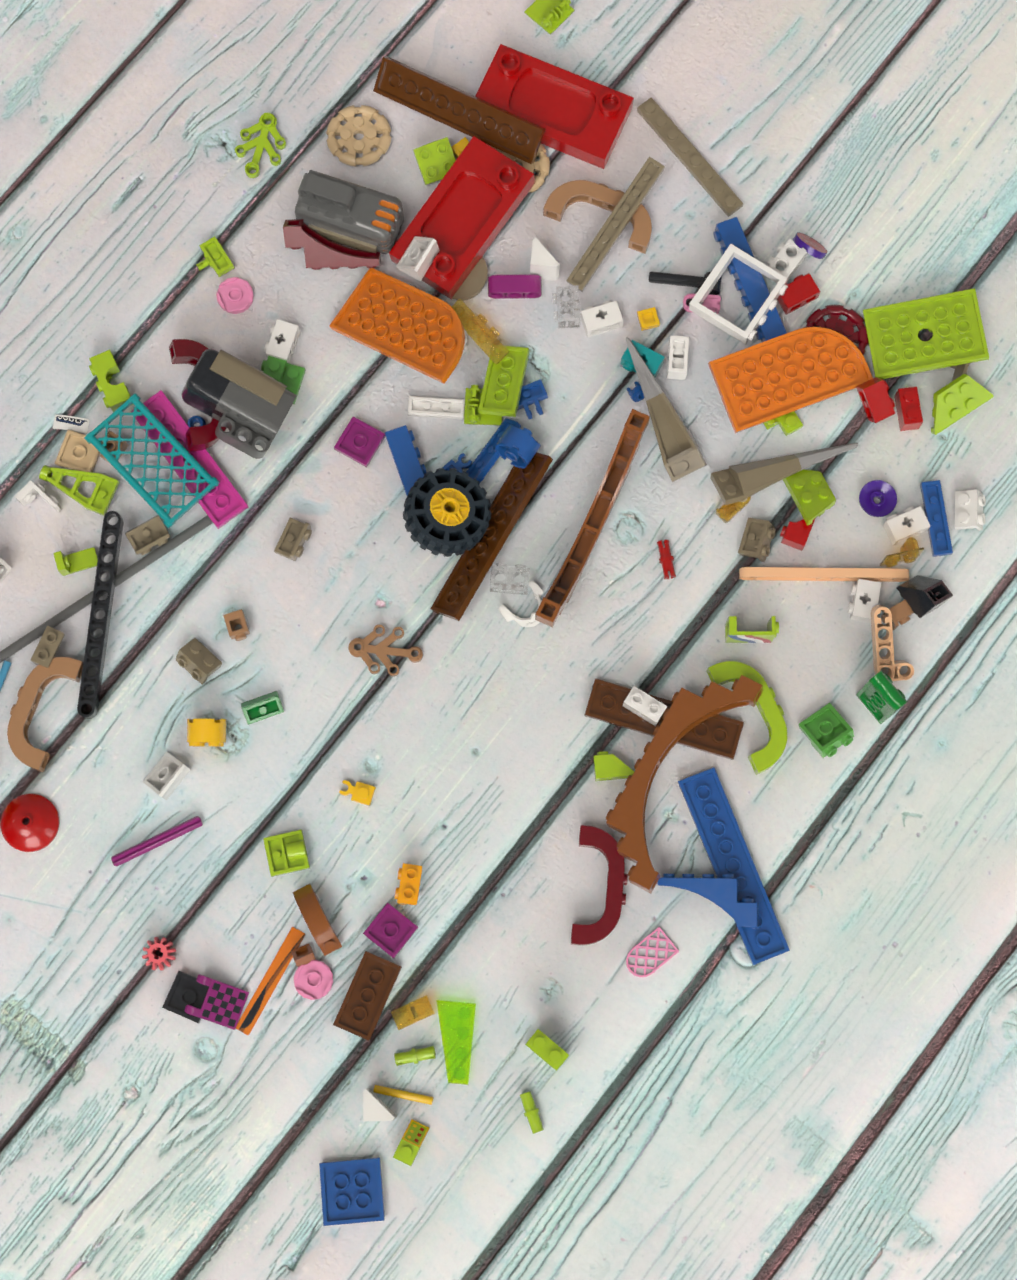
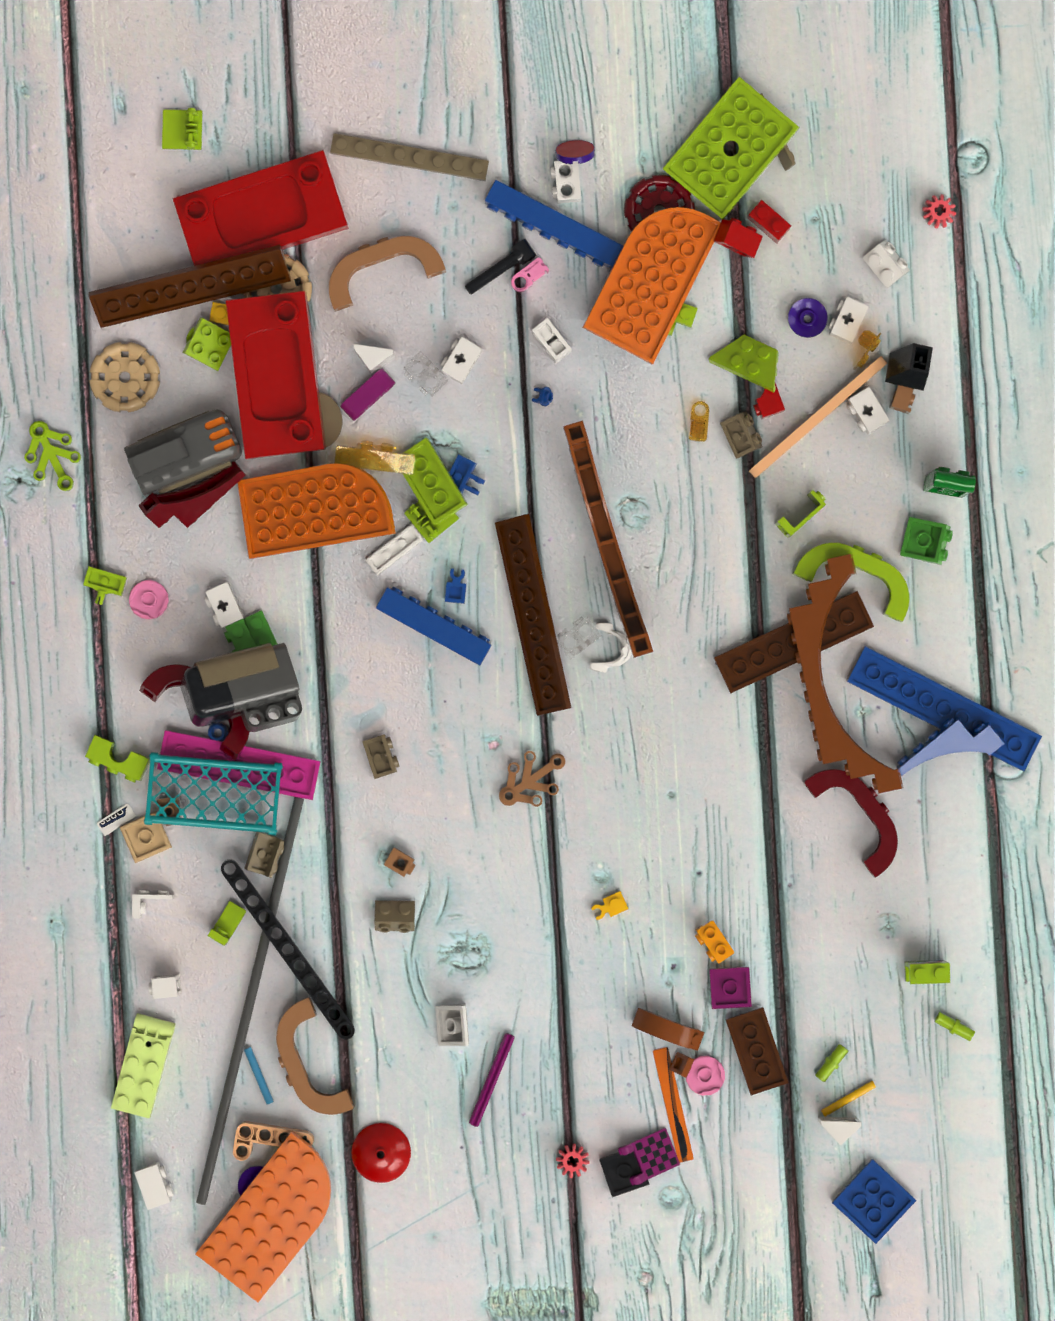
camera: 40 degrees left, 10 degrees up
(47, 647) = (271, 1010): dark tan bracket -> none
(101, 496) = (197, 855): lime plate -> none
(206, 731) = (454, 965): yellow brick -> none
(262, 707) = (476, 907): green slope -> none
(286, 853) = (599, 1000): lime plate -> none
(359, 441) = (360, 631): magenta plate -> none
(411, 1142) = (886, 1128): lime slope -> none
(413, 1012) = (802, 1033): clear yellow arch -> none
(418, 257) = (273, 443): white slope -> none
(447, 512) = (482, 651): black wheel -> none
(457, 1029) = (848, 1018): clear neon green wing -> none
(488, 455) = (472, 547): blue plate -> none
(517, 446) = (492, 527): blue brick -> none
(610, 767) = (786, 716): lime slope -> none
(615, 223) = (404, 272): dark tan plate -> none
(644, 706) = (772, 647): white brick -> none
(648, 319) = (498, 327): yellow plate -> none
(652, 359) = (531, 359): teal brick -> none
(652, 958) = (939, 835): bright pink window -> none
(666, 559) = (685, 513): red pin -> none
(675, 442) = (612, 413): dark tan plate -> none
(749, 478) = (693, 391): dark tan plate -> none
(760, 318) = (588, 235): white window -> none
(799, 293) = (598, 201): red brick -> none
(886, 642) = (913, 432): light nougat beam -> none
(937, 518) = (866, 293): blue plate -> none
(957, 401) = (802, 182): lime wing -> none

